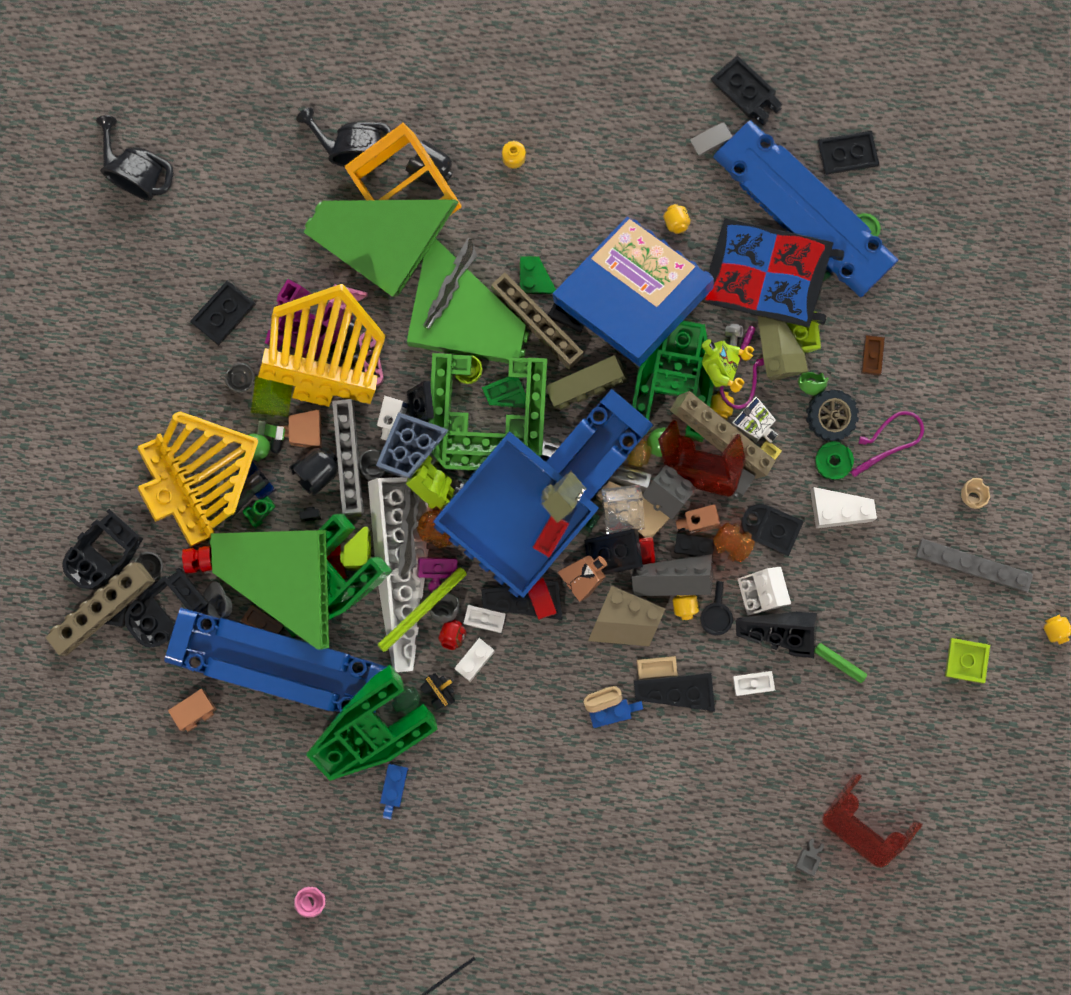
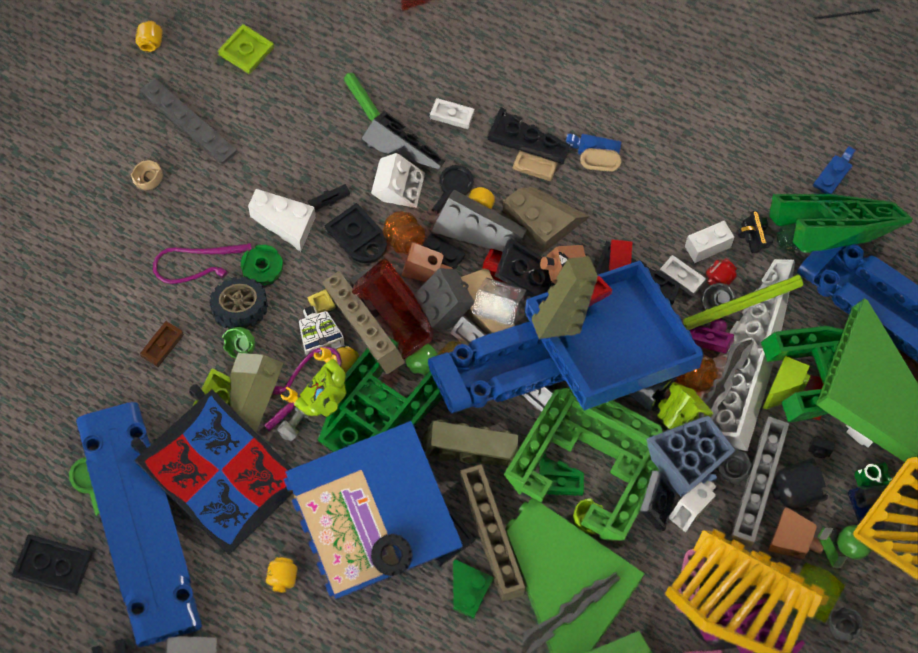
camera: 155 degrees left, 15 degrees down
(597, 249) = (381, 544): none -> black tyre
(814, 549) = (341, 192): none -> black pin

